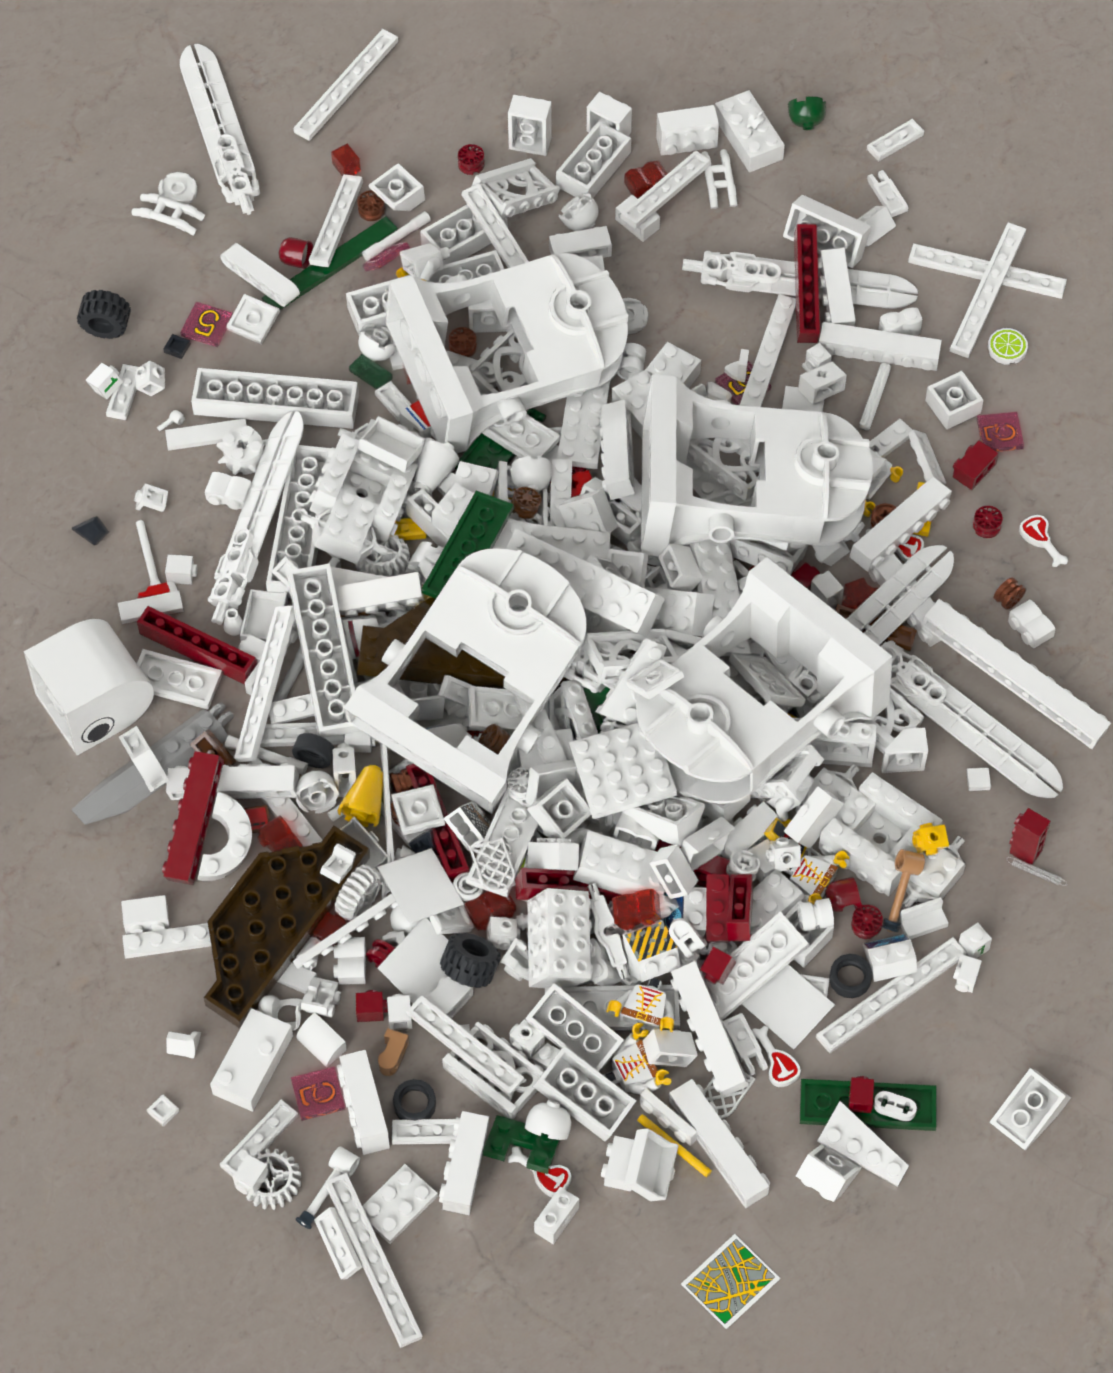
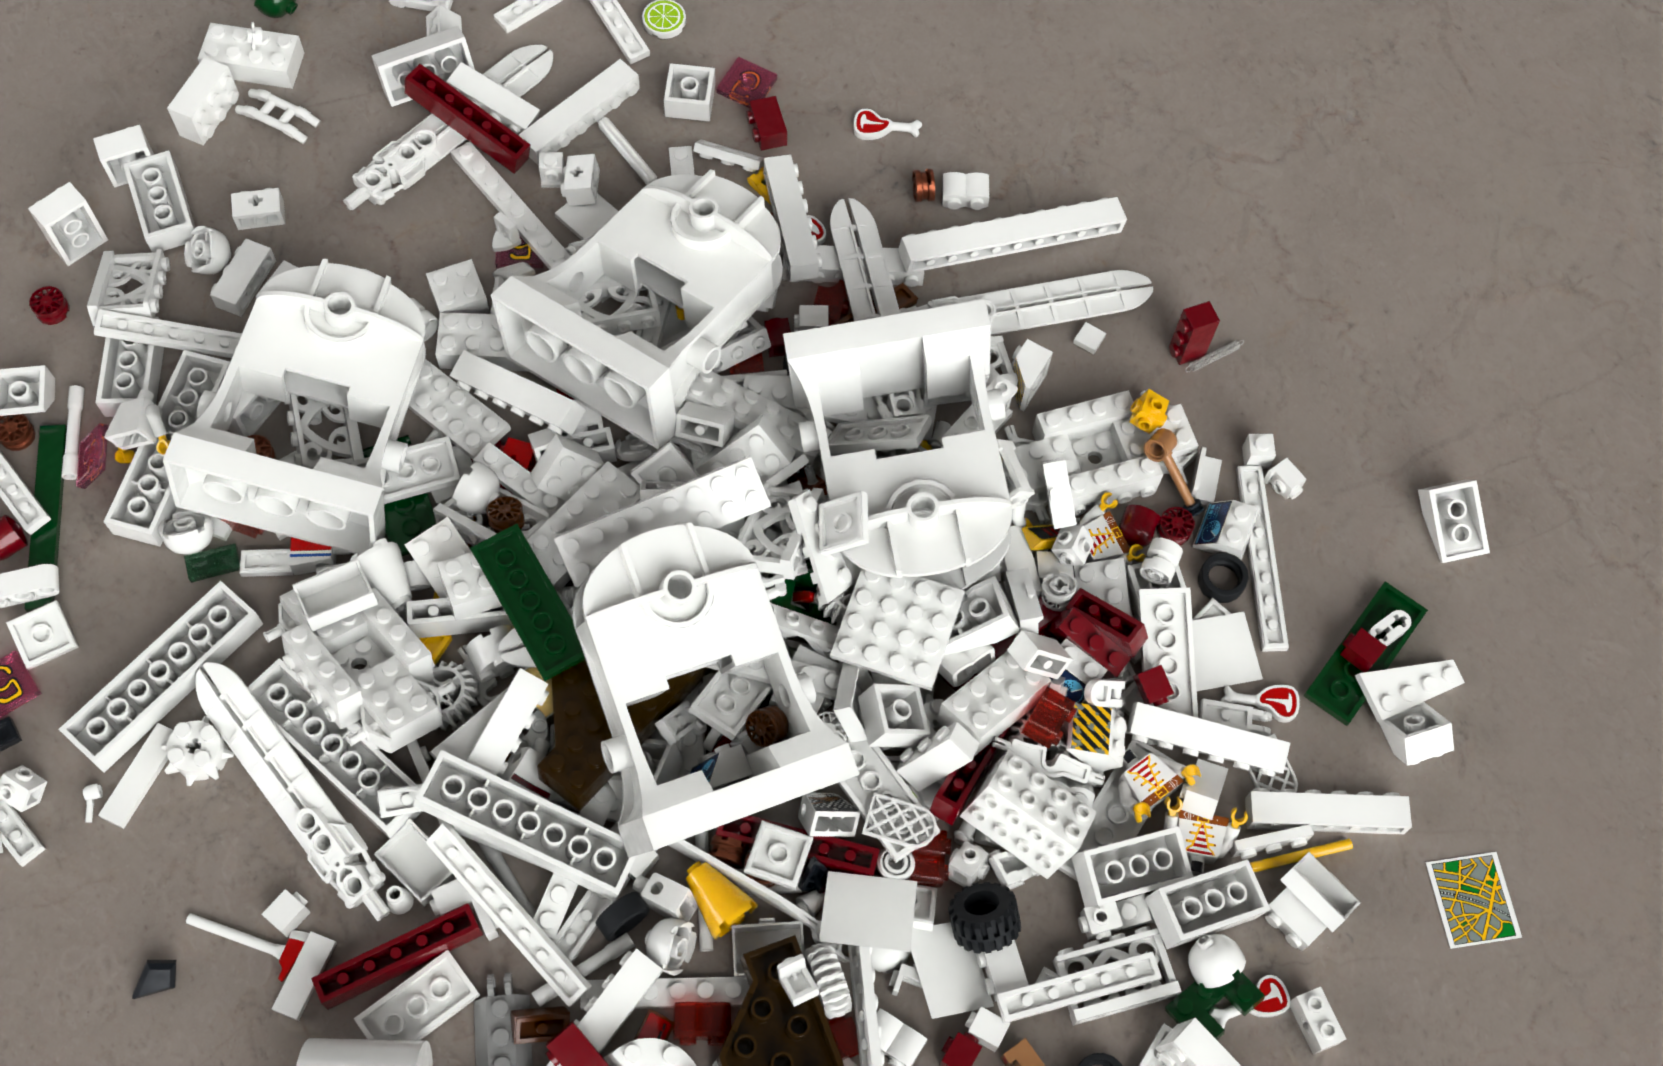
camera: 60 degrees left, 5 degrees up
(151, 497) = (170, 886): white bracket -> none
(227, 490) = (231, 798): white brick -> none
(379, 952) = (910, 1003): dark red wheel -> none
(643, 178) = (221, 172): clear red brick -> none
(665, 189) = (254, 162): white plate -> none
(905, 322) = (573, 76): white brick -> none
(987, 523) = (838, 148): dark red wheel -> none

